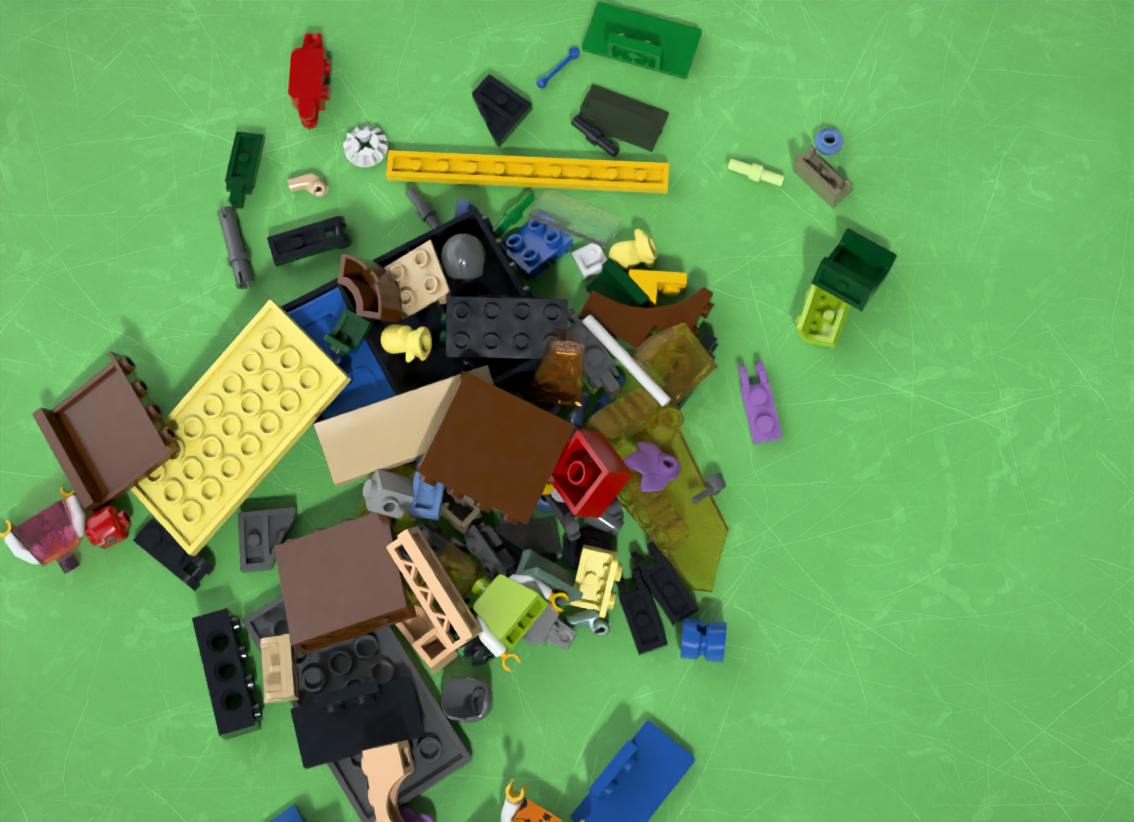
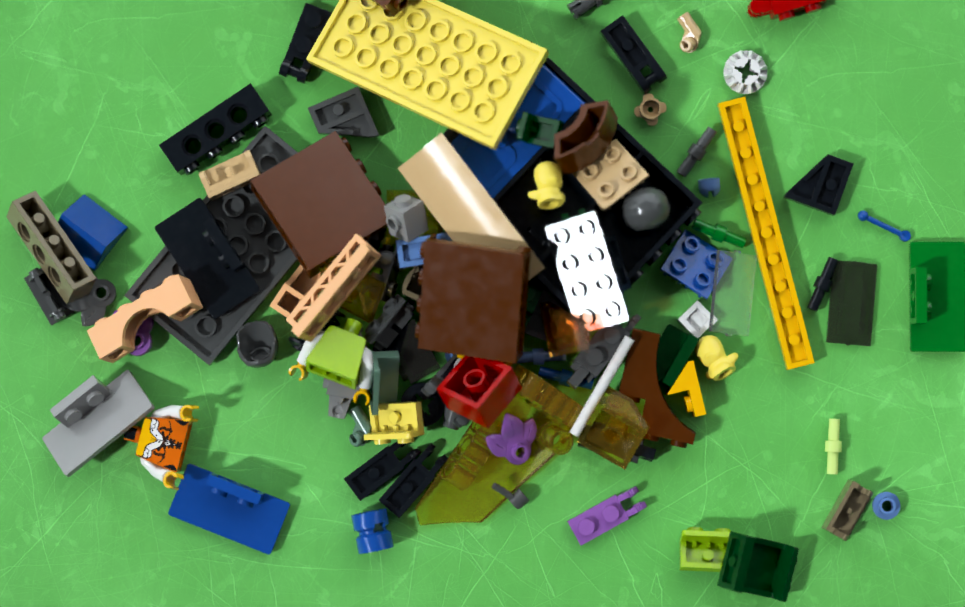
camera: 70 degrees right, 15 degrees up
(369, 233) = (657, 106): none -> tan plate

